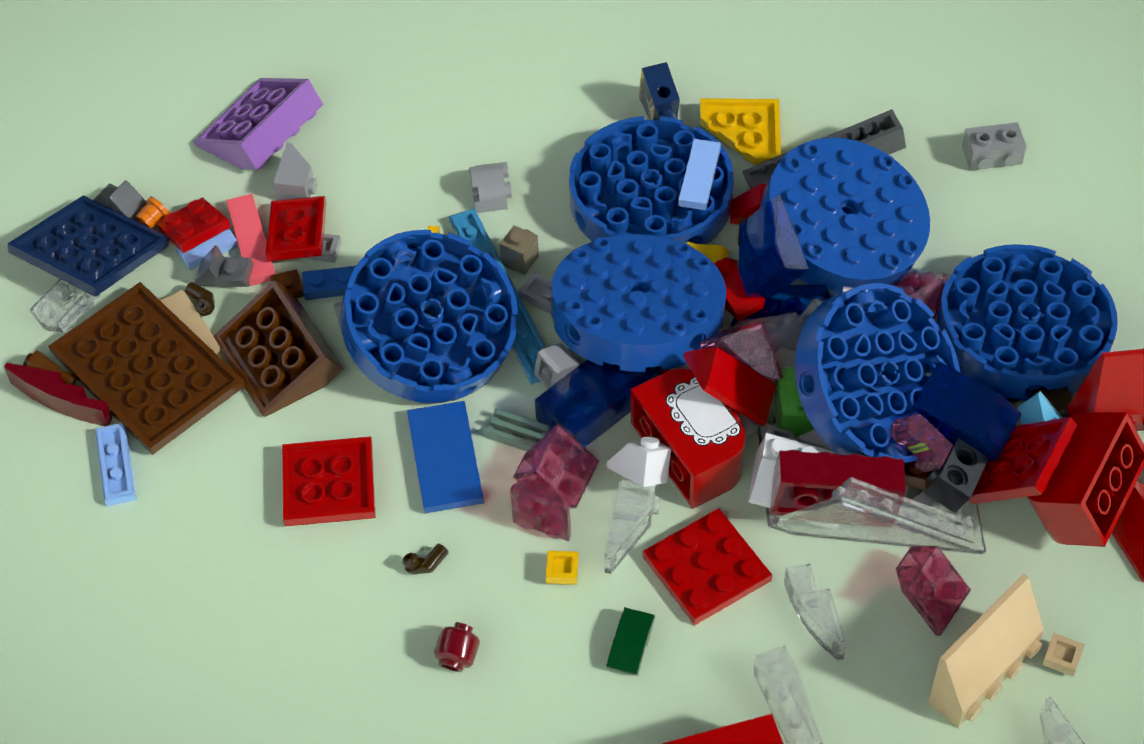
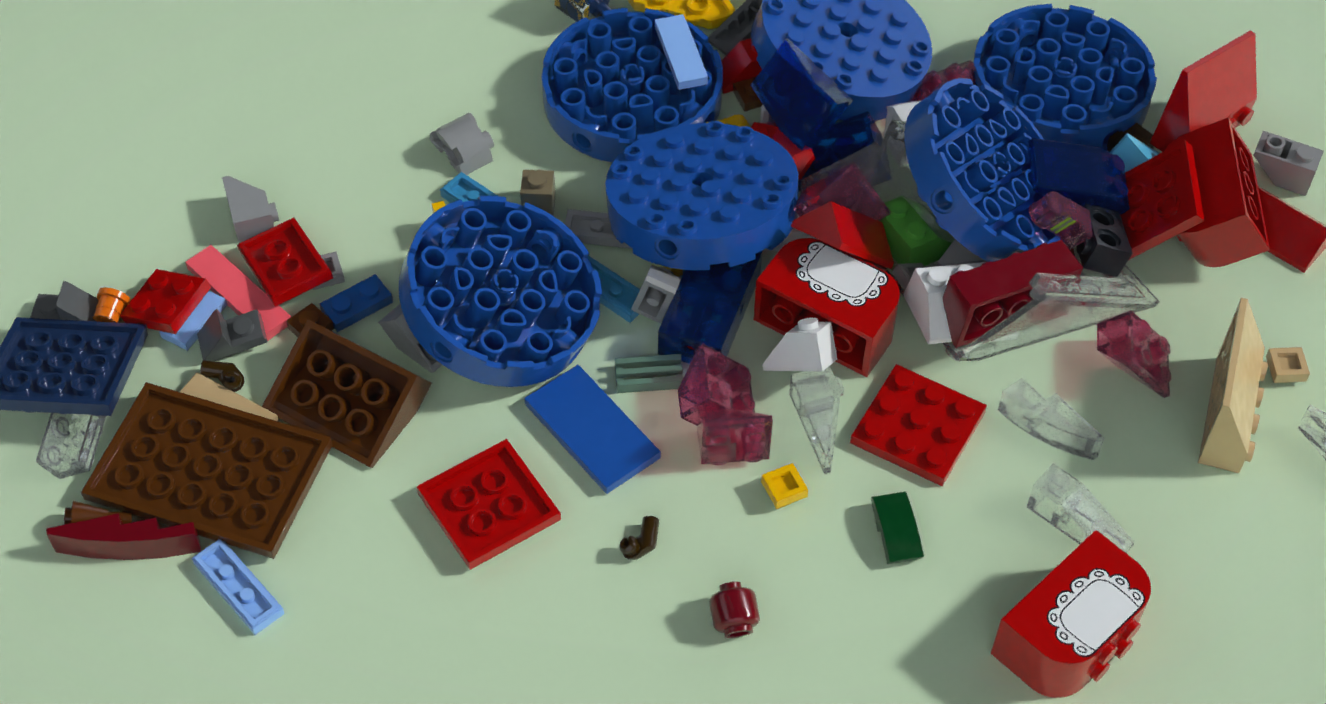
camera: 30 degrees left, 0 degrees up
(260, 121) = (171, 167): medium lavender slope -> none

